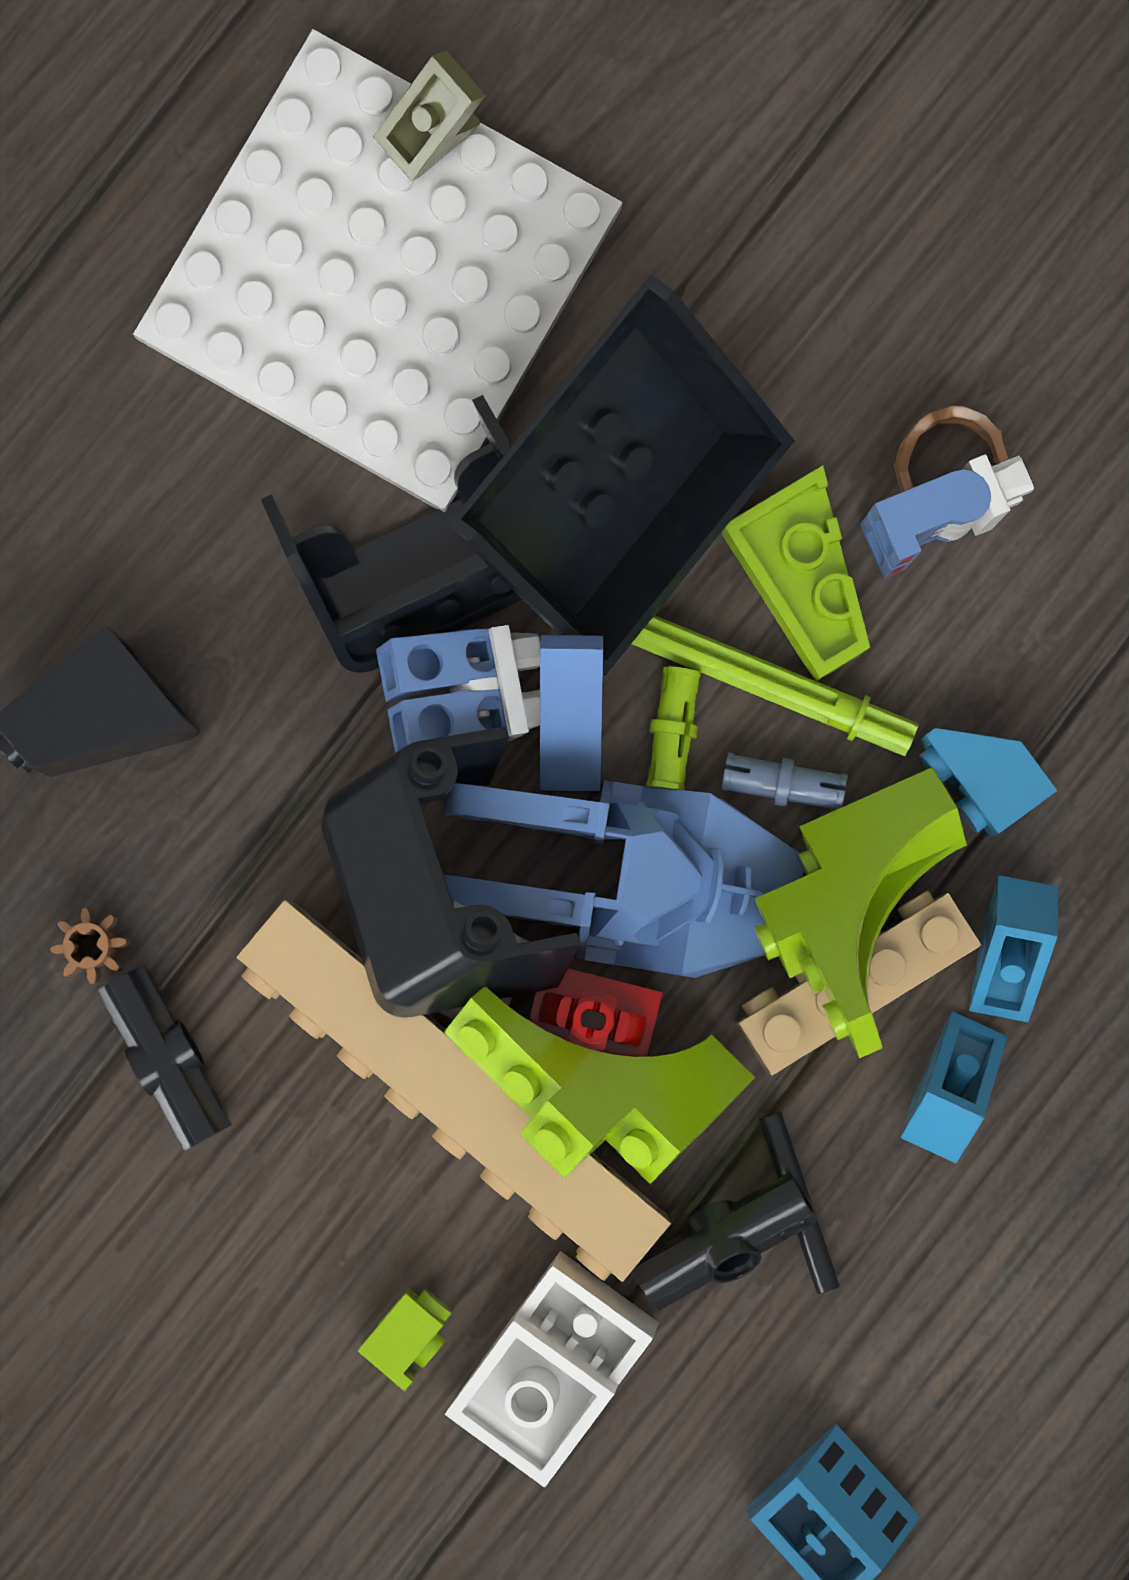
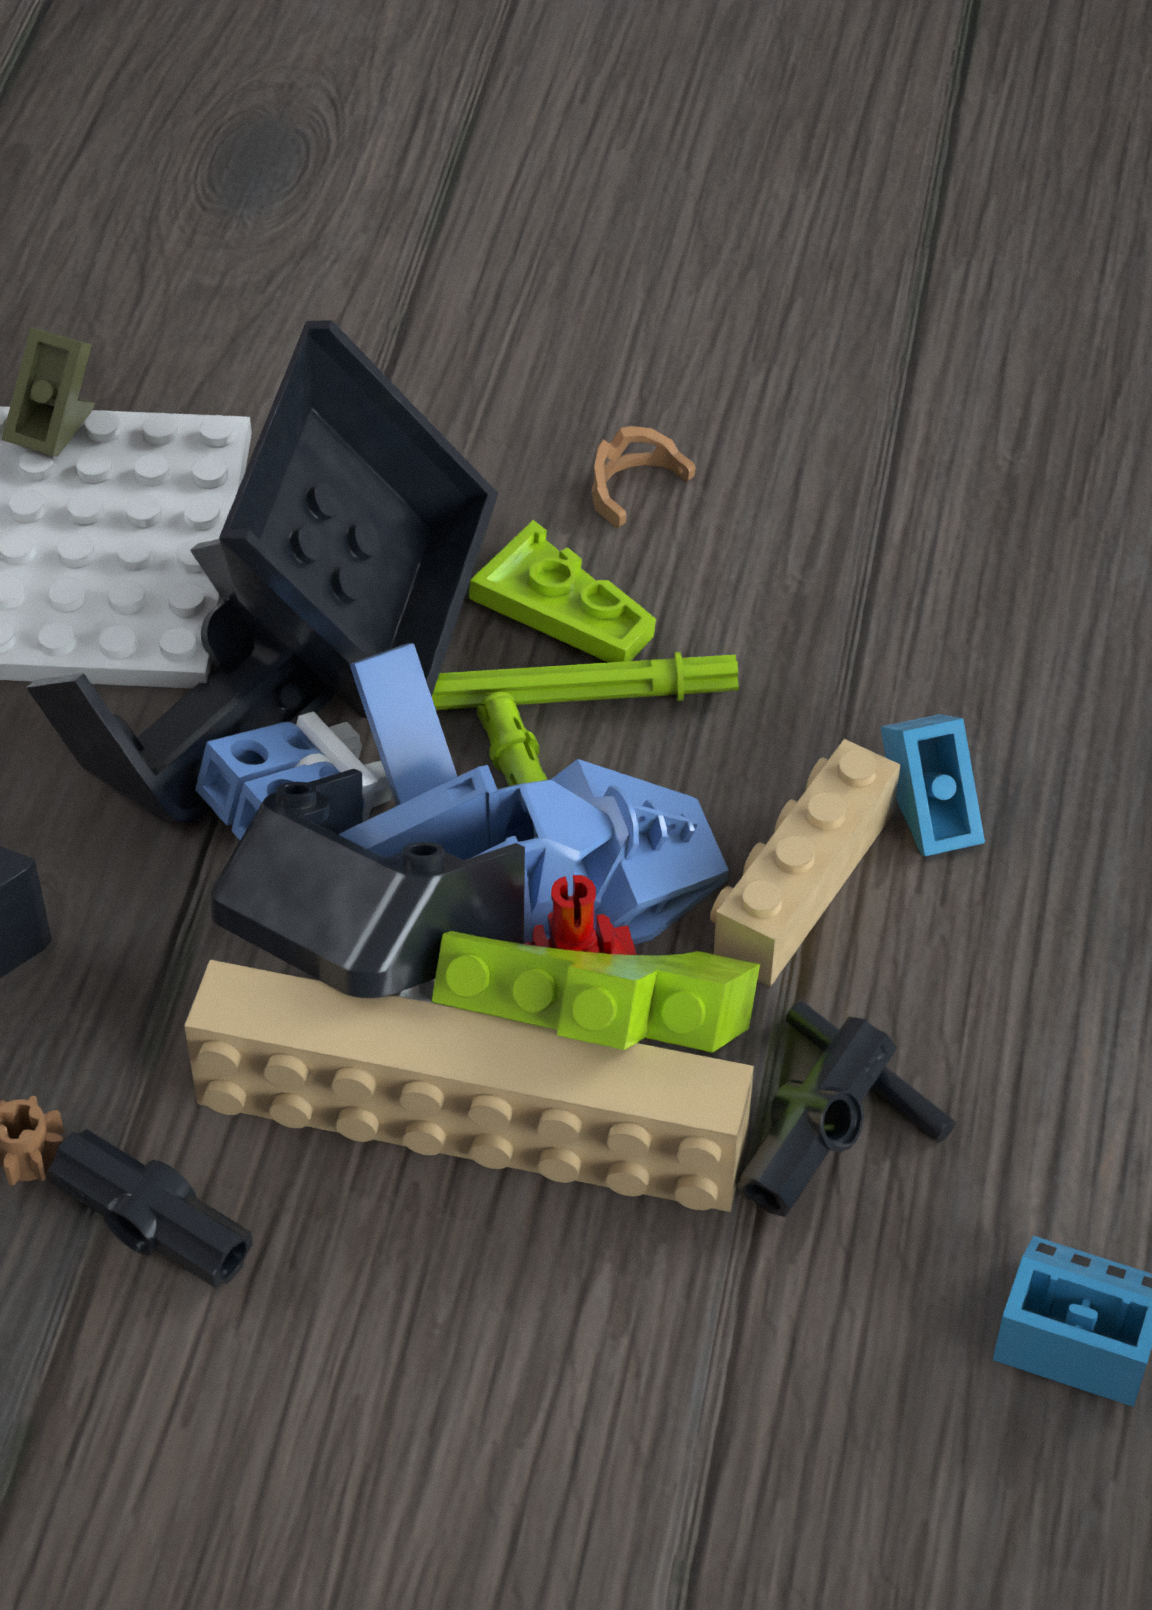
camera: 30 degrees left, 35 degrees down
(407, 1336) = (542, 1349): lime brick -> none
(552, 1369) = (713, 1312): white slope -> none
(784, 782) = (646, 745): sand blue pin -> none
(855, 875) = (752, 773): lime arch -> none
(943, 510) = (655, 496): medium blue hips -> none
(954, 1088) = (954, 911): dark azure slope -> none
(990, 775) = (819, 667): dark azure slope -> none

